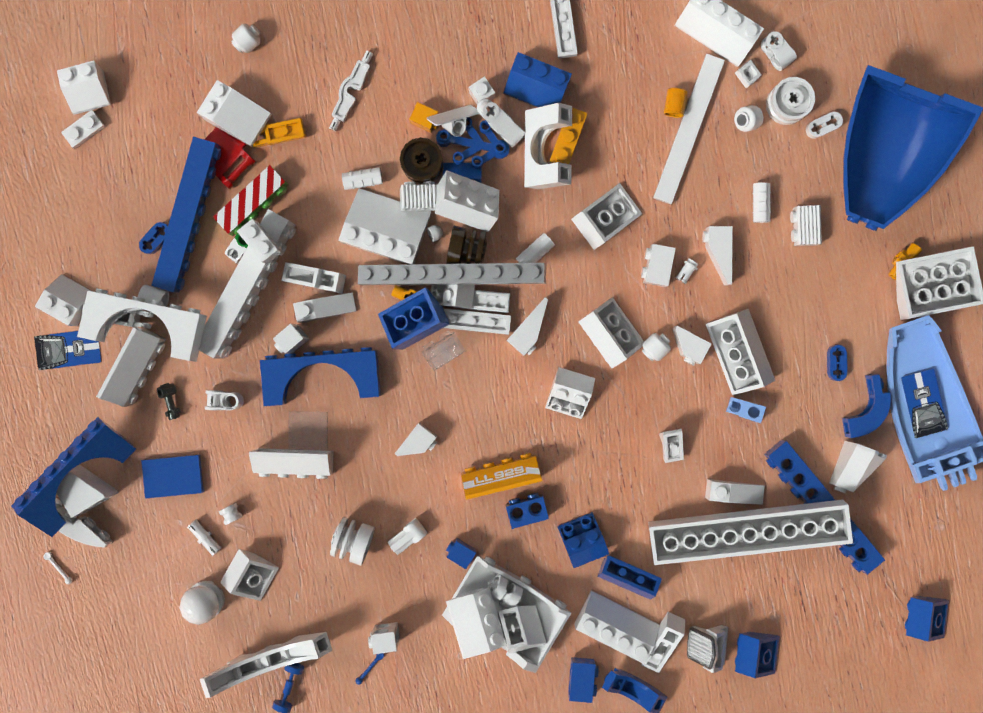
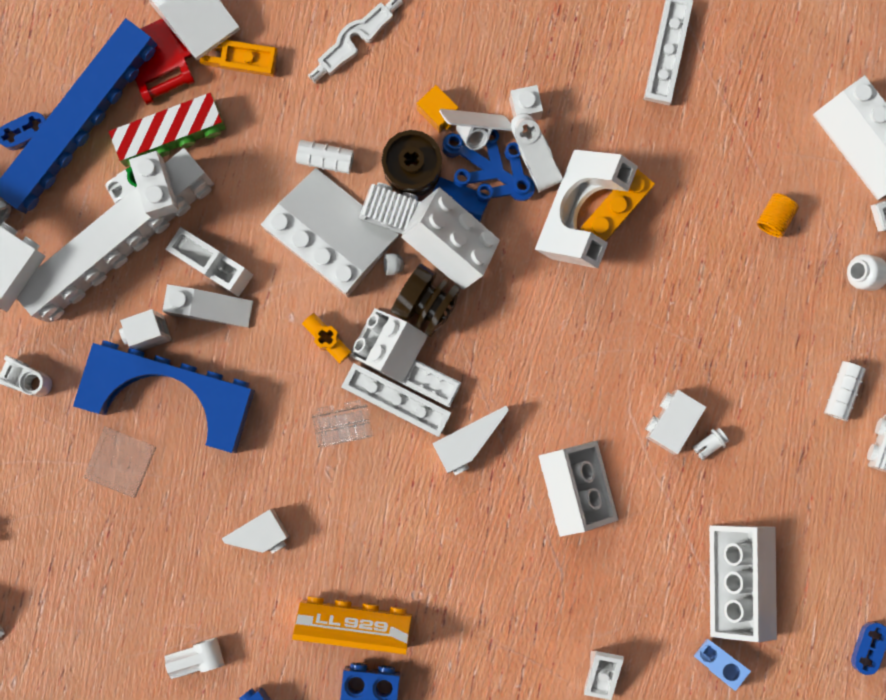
camera: 25 degrees right, 5 degrees down
(295, 462) = (81, 496): white slope -> none
(352, 541) = (116, 635): white wheel -> none
(413, 319) = (318, 367): blue slope -> none
(452, 274) = (395, 327): light grey plate -> none
(536, 82) = (603, 118): blue slope -> none
(536, 250) = (516, 340): white axle -> none
(570, 393) = (491, 548): white slope -> none
(606, 216) = (629, 329): white slope -> none
(656, 347) = (631, 530): white head -> none
(688, 129) = (781, 257): white tile -> none
(690, 346) = (678, 548): white slope -> none
(719, 247) = (766, 430): white slope -> none

